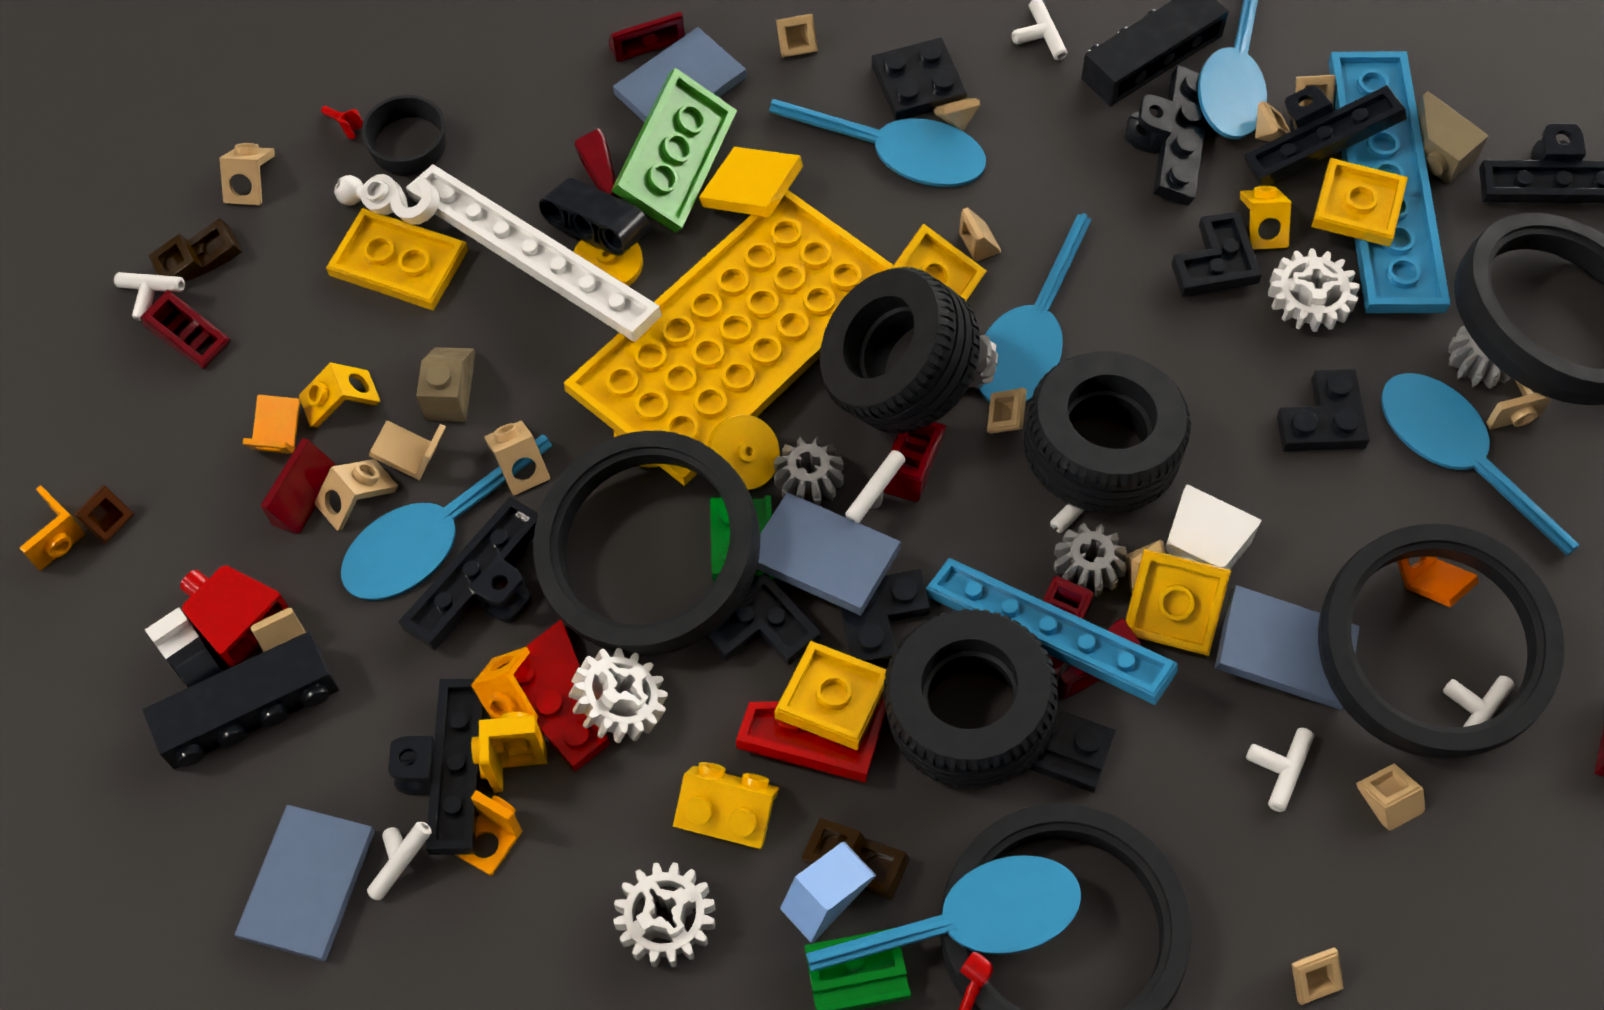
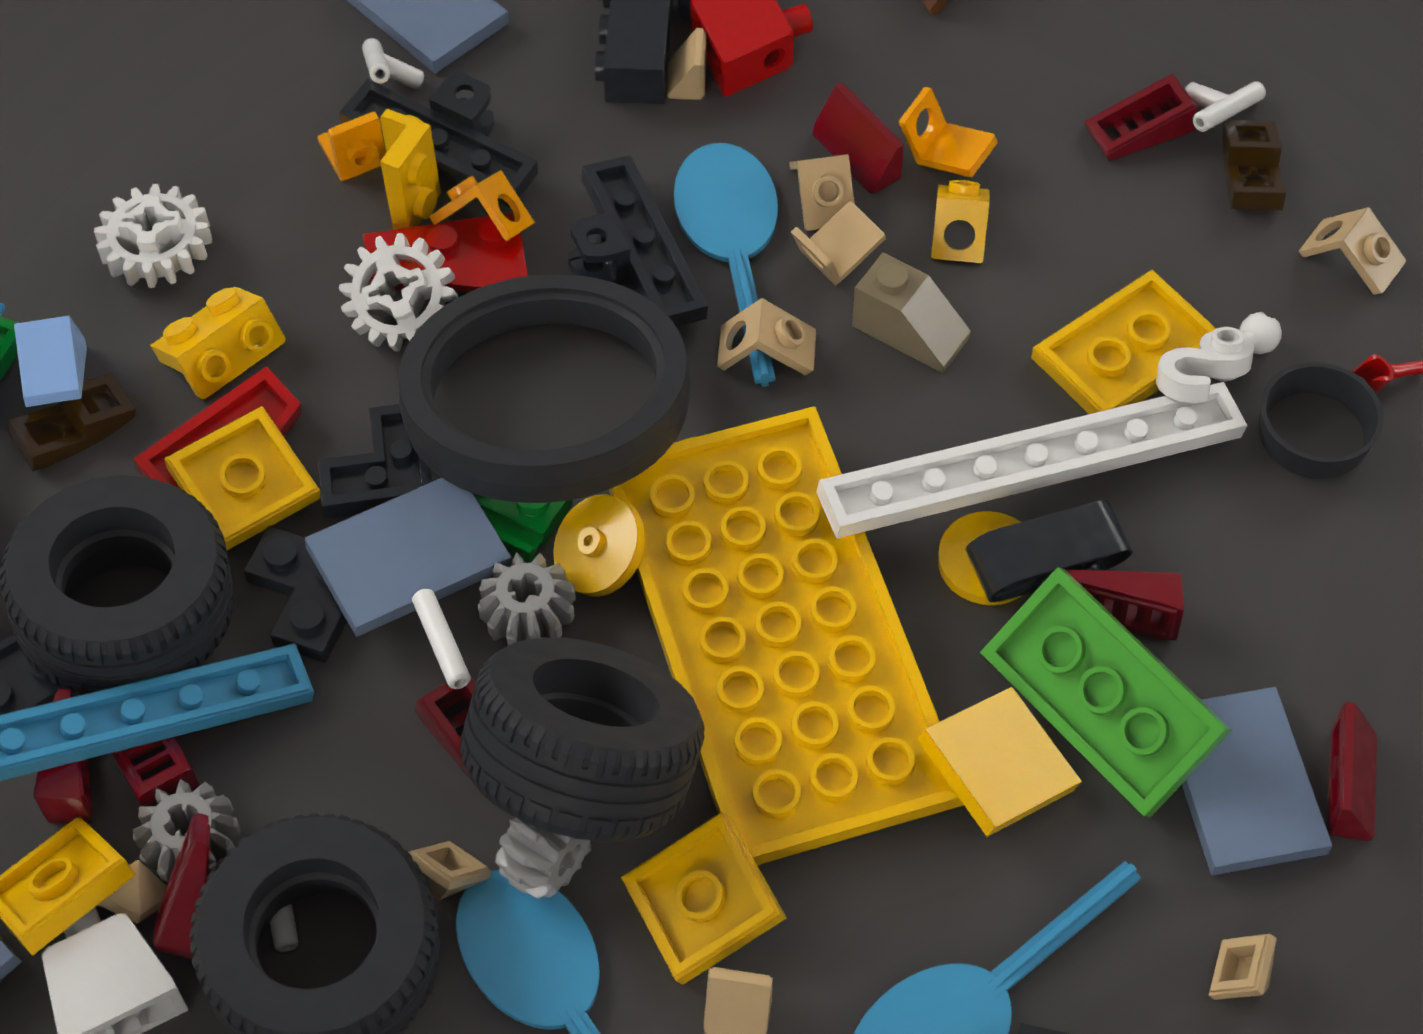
camera: 120 degrees right, 5 degrees down
(1131, 514) = (183, 889): none -> dark red slope

